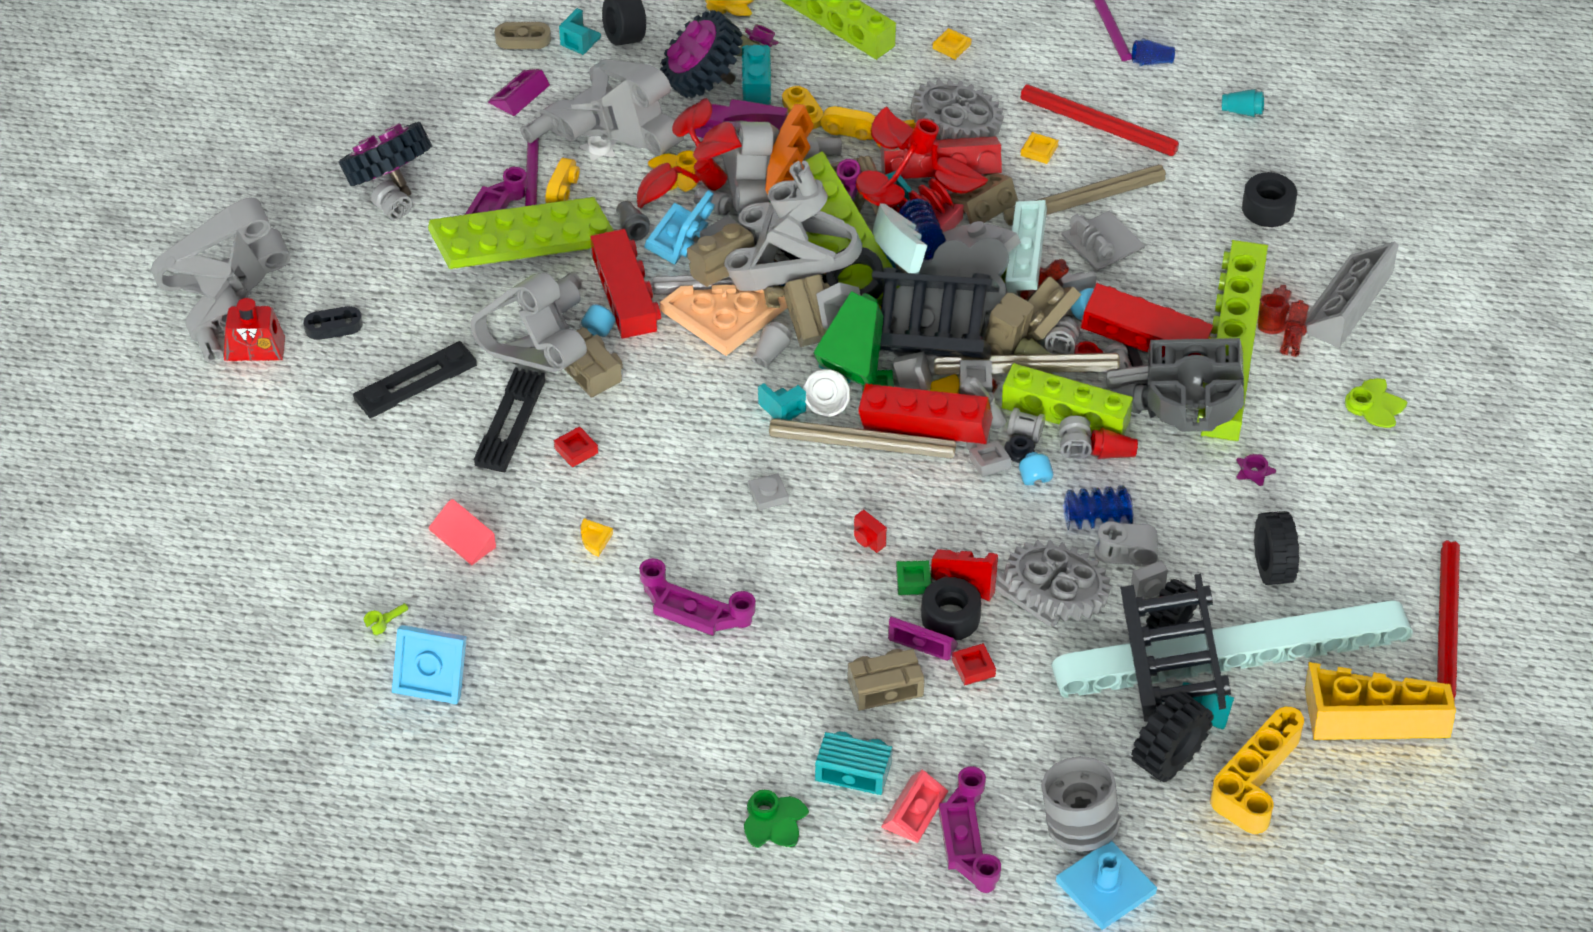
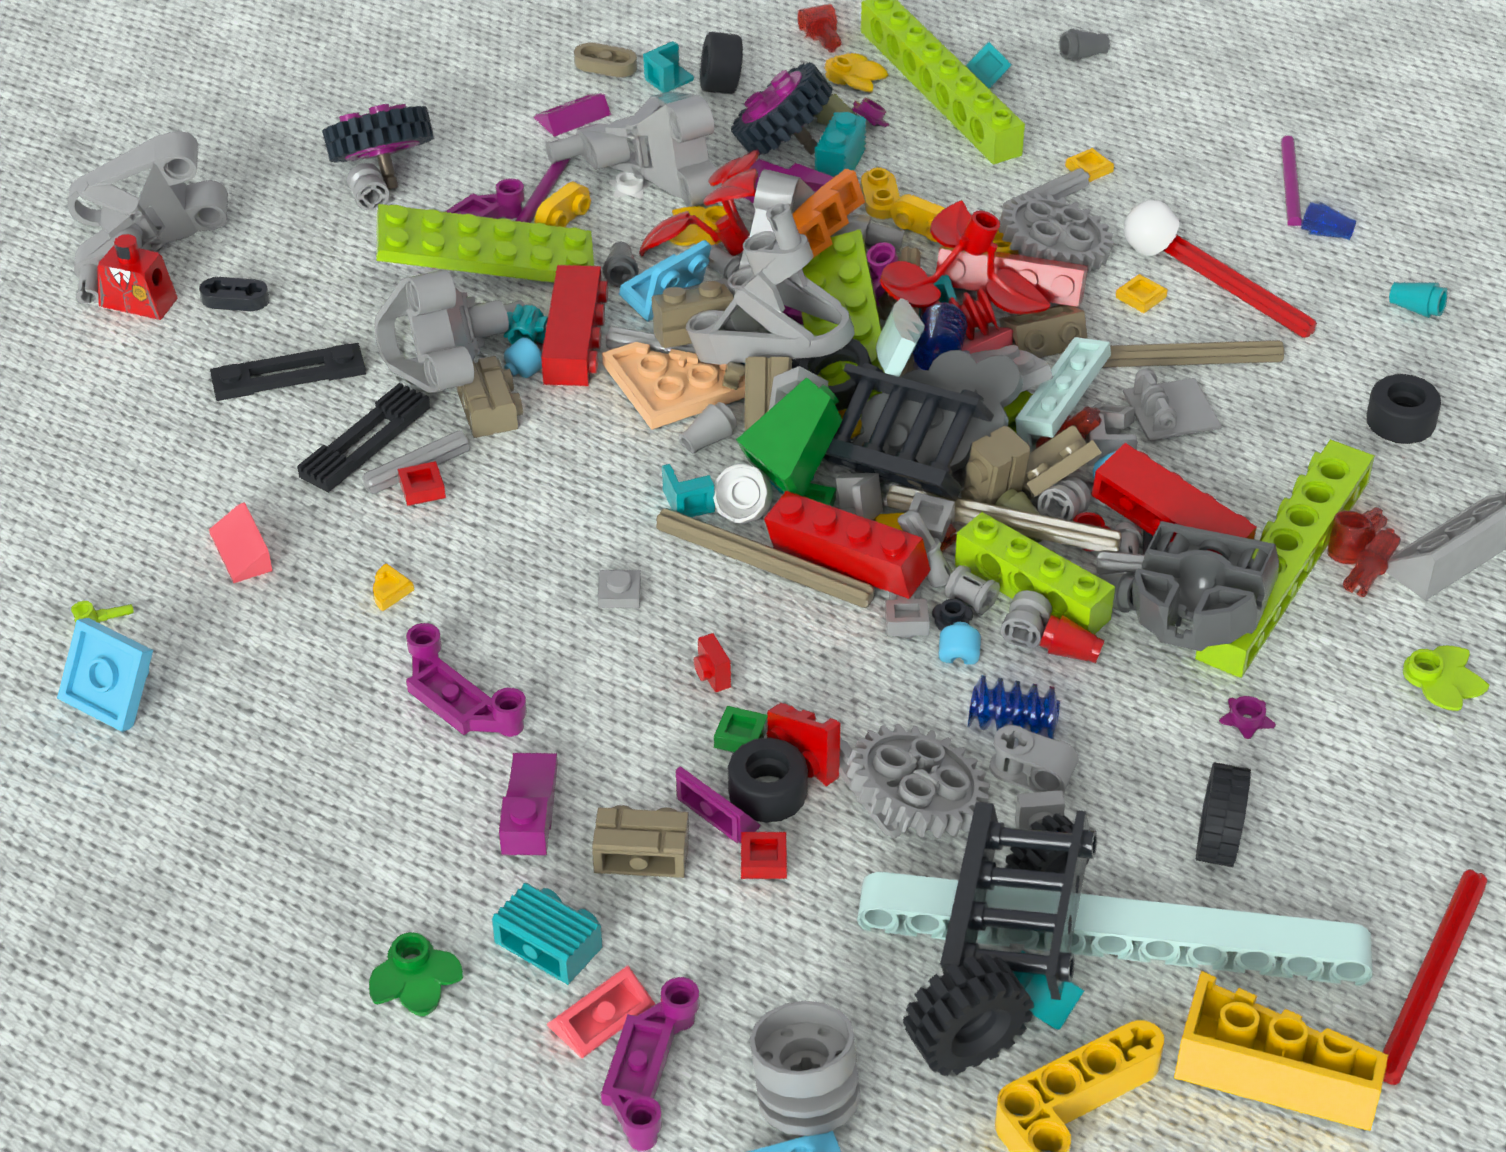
camera: 20 degrees right, 5 degrees down
(568, 421) = (439, 451): none -> light grey axle
(590, 293) = (526, 322): none -> teal gear
(791, 674) = (528, 804): none -> magenta slope
(934, 72) = (1061, 186): none -> light grey axle
(1026, 90) = (1150, 227): none -> white hair
(1070, 255) = (1116, 417): none -> light grey plate

